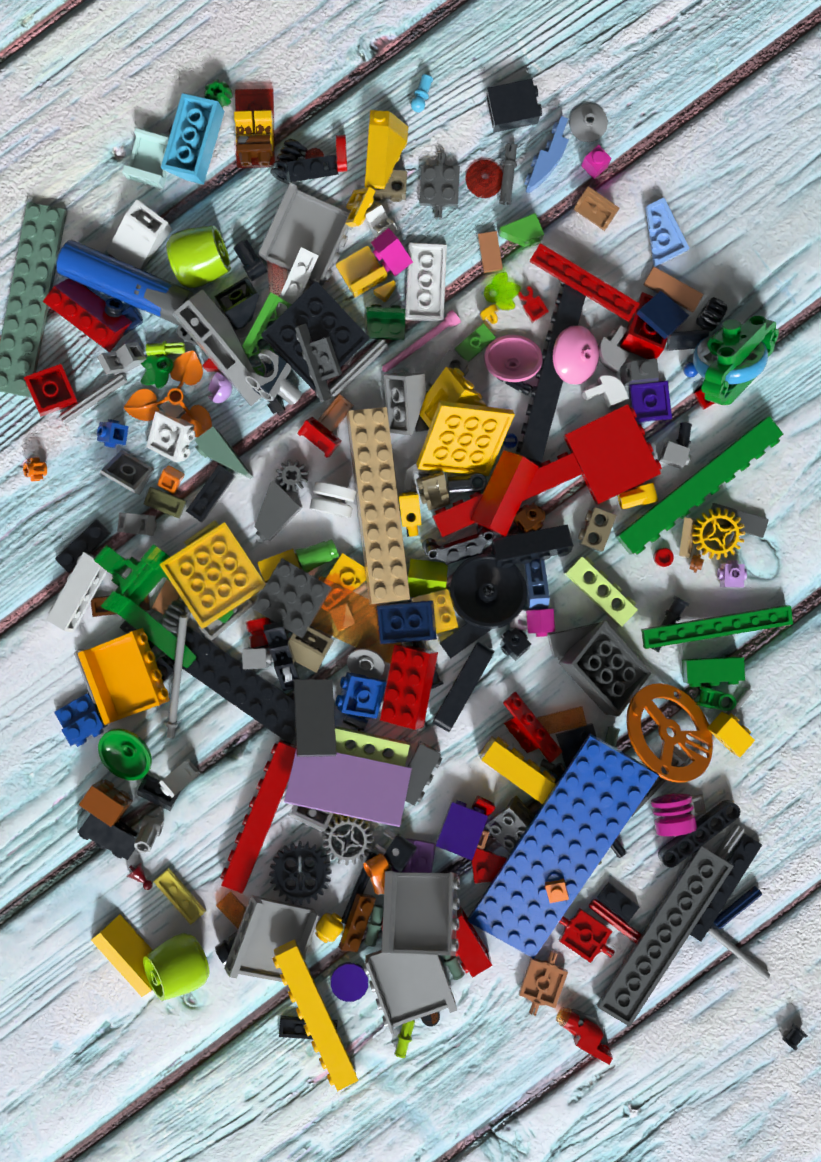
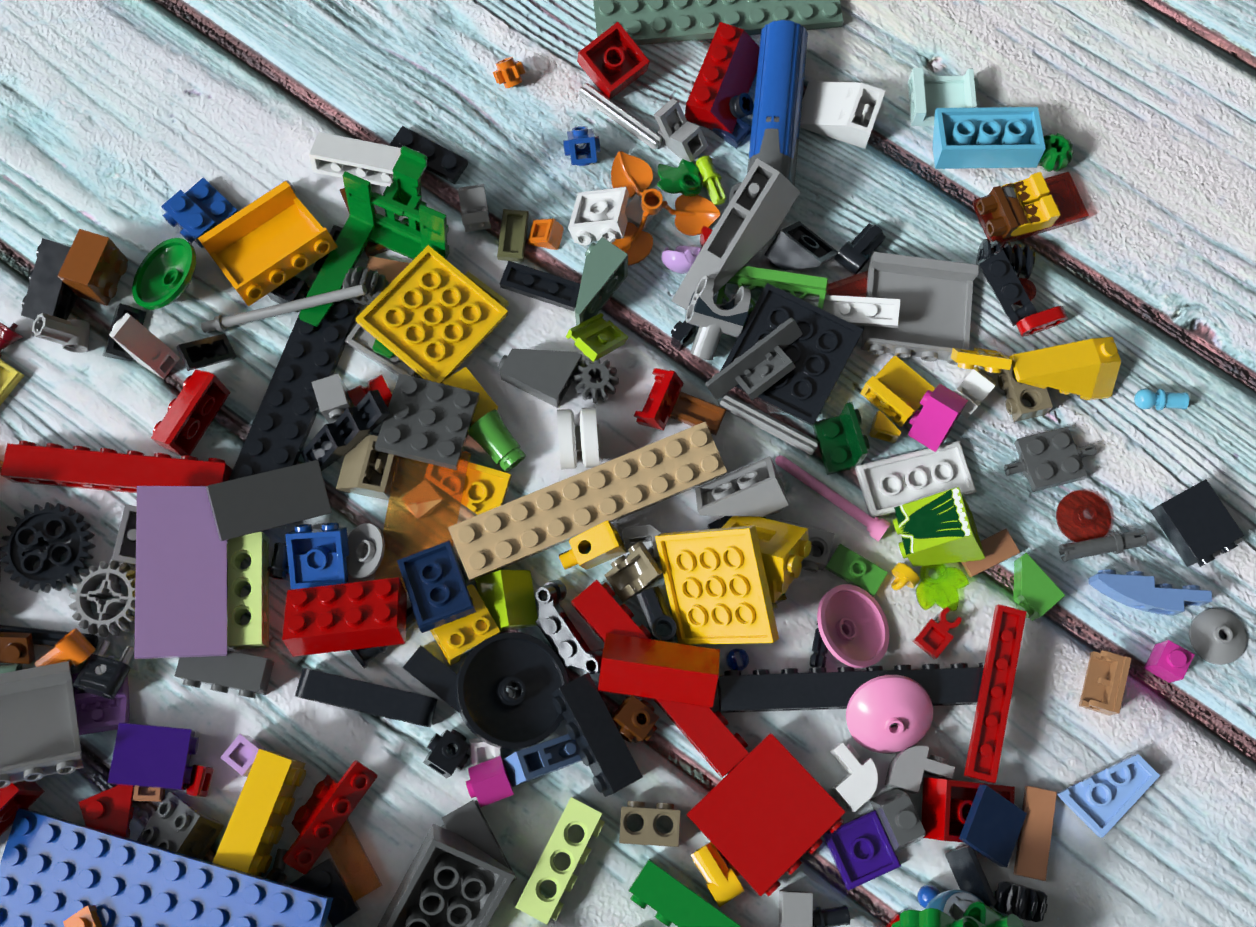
camera: 70 degrees right, 15 degrees down
(128, 472) = (537, 179): light grey slope -> none
(192, 737) = (206, 352): none -> black slope
(198, 256) = (842, 182): lime piece -> none
(234, 759) = (190, 413): none -> red slope
(262, 465) = (597, 337): none -> lime plate
(467, 280) = (938, 530): none -> slope
(478, 771) = (242, 754): none -> lavender brick

